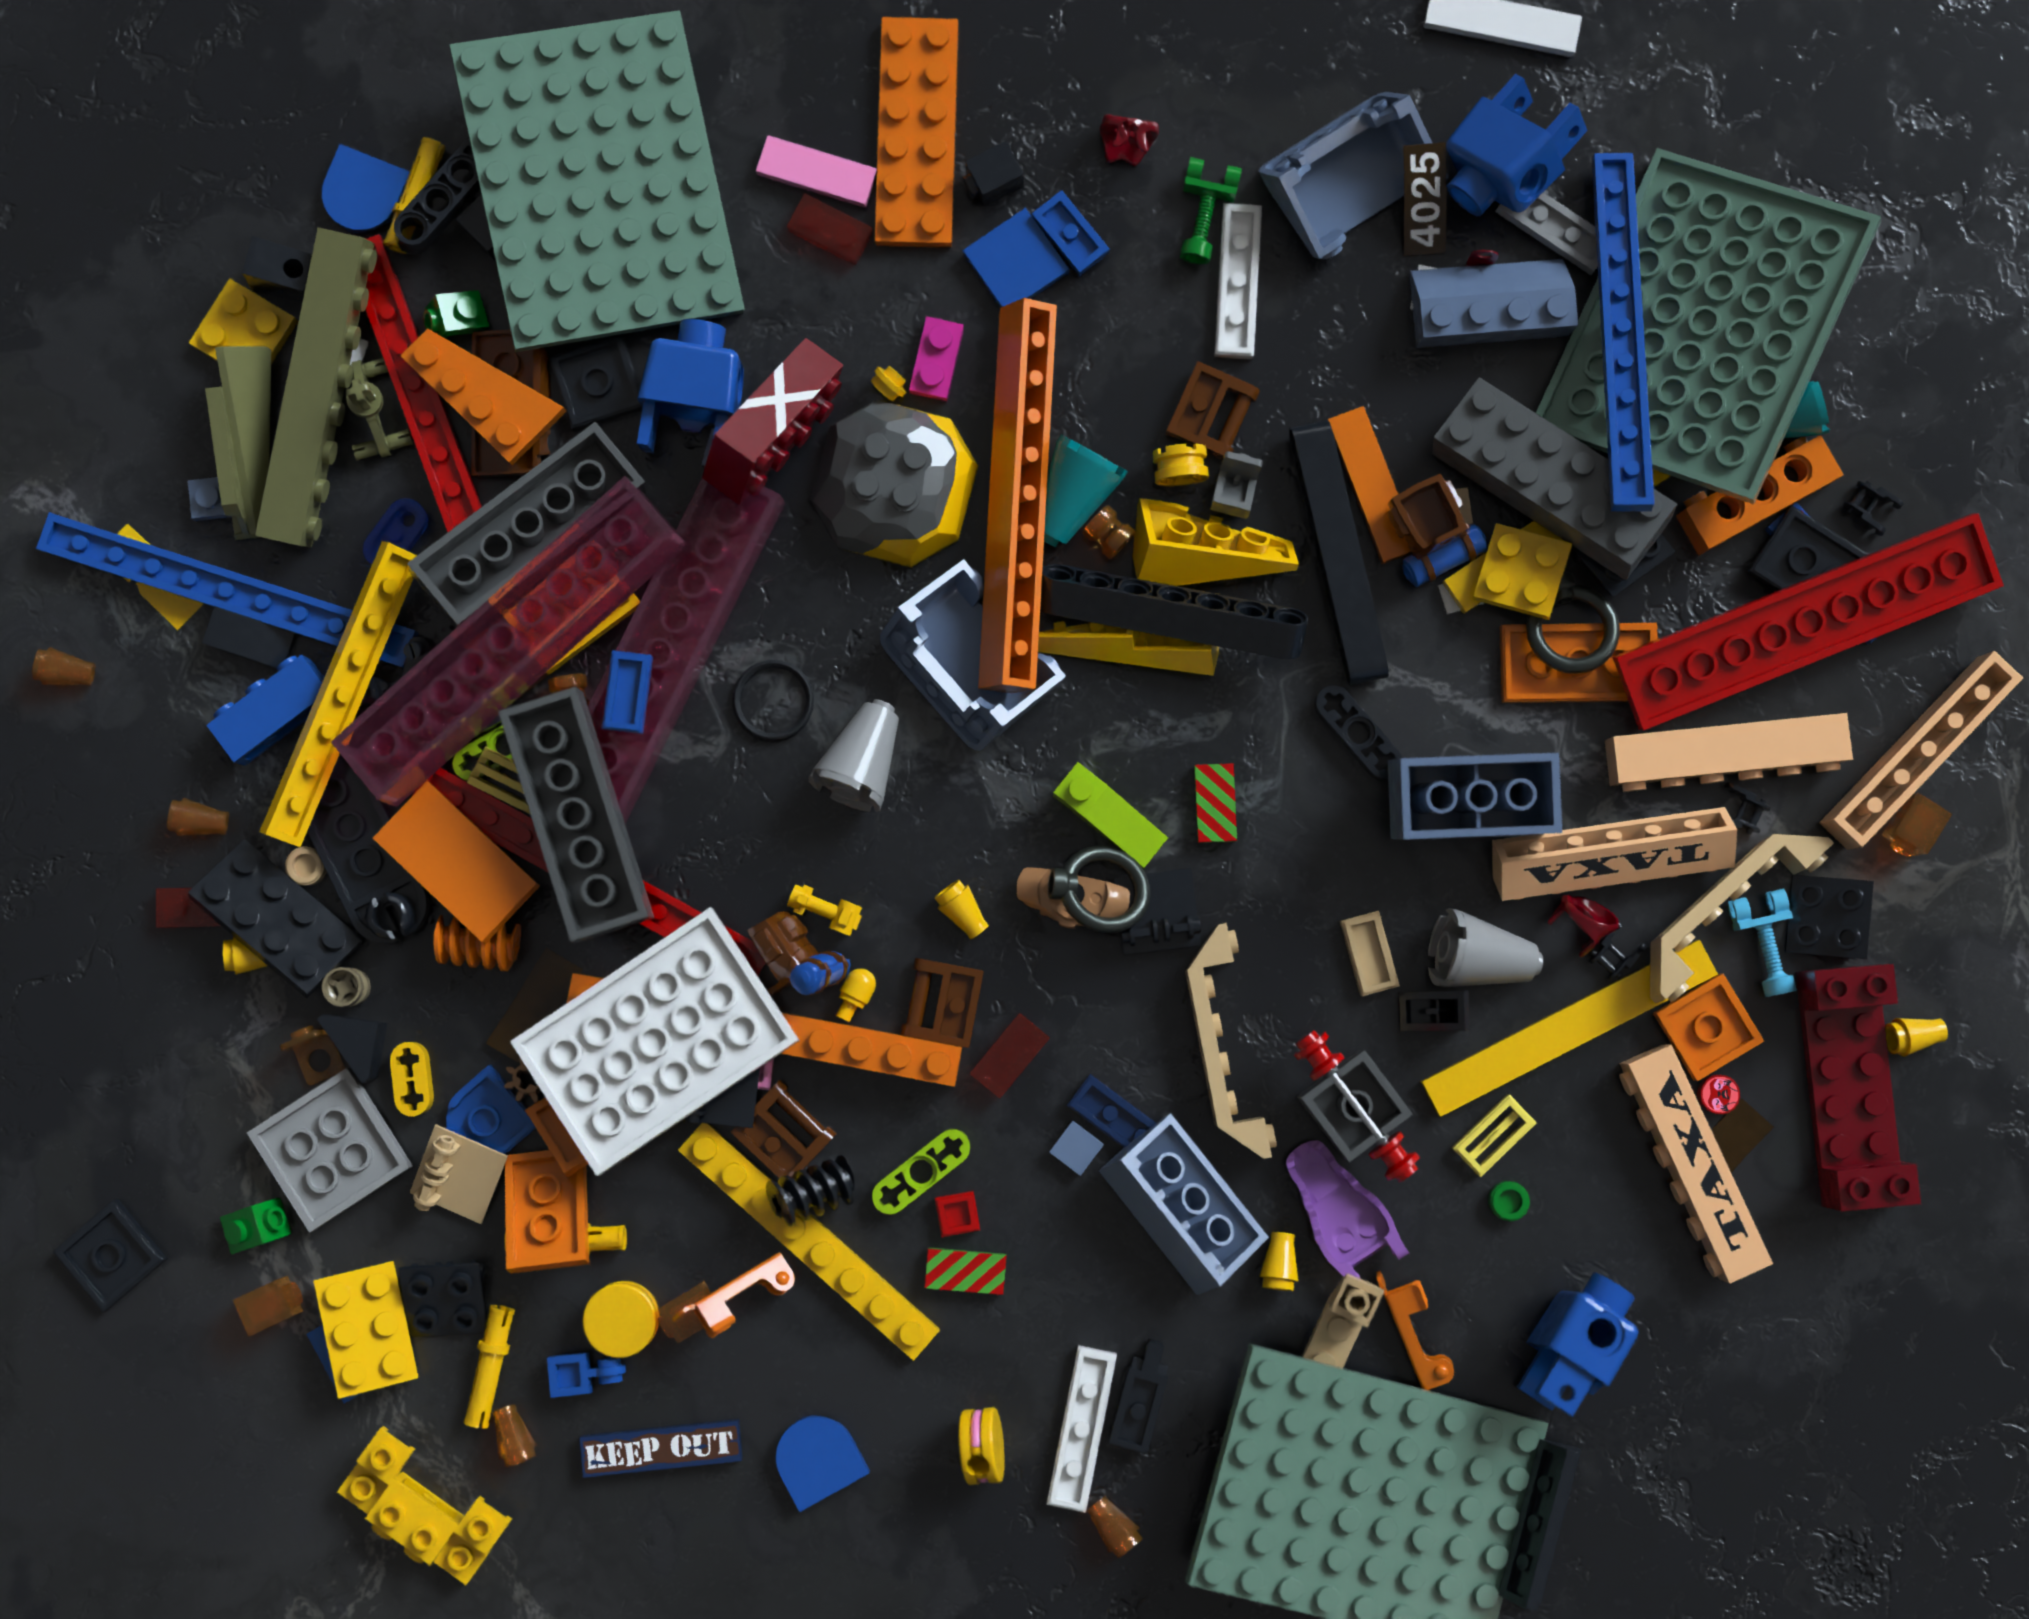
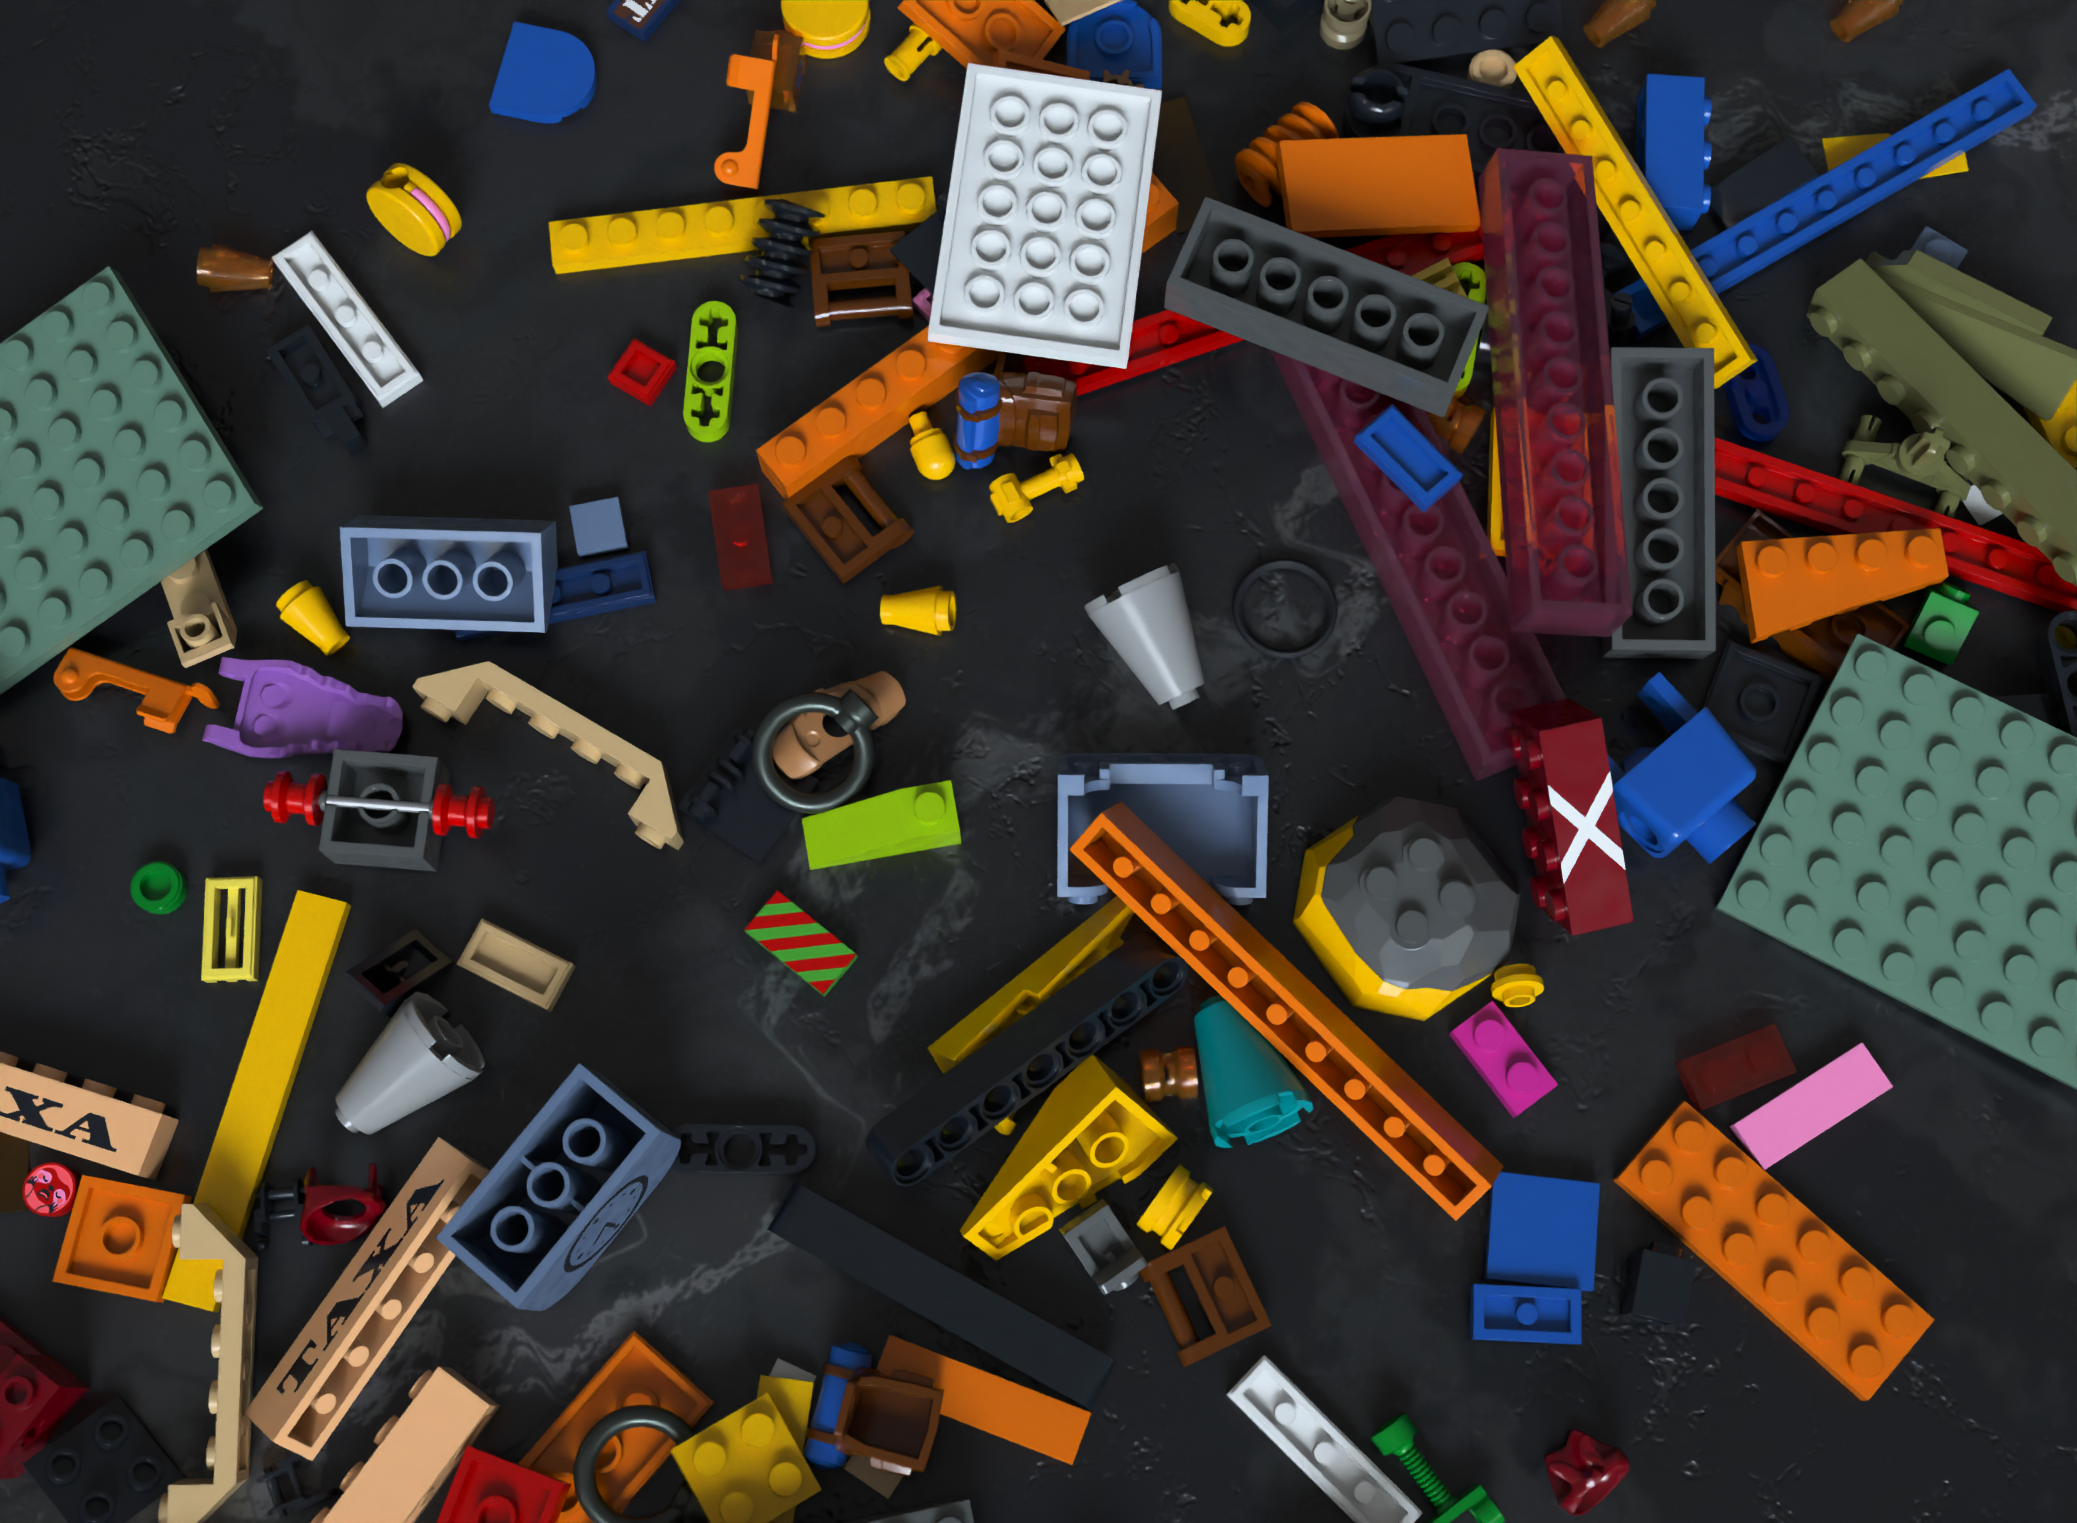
camera: 130 degrees right, 10 degrees down
(965, 1271) = (583, 335): tile -> none
(1778, 905) = (94, 1353): medium azure bar -> none

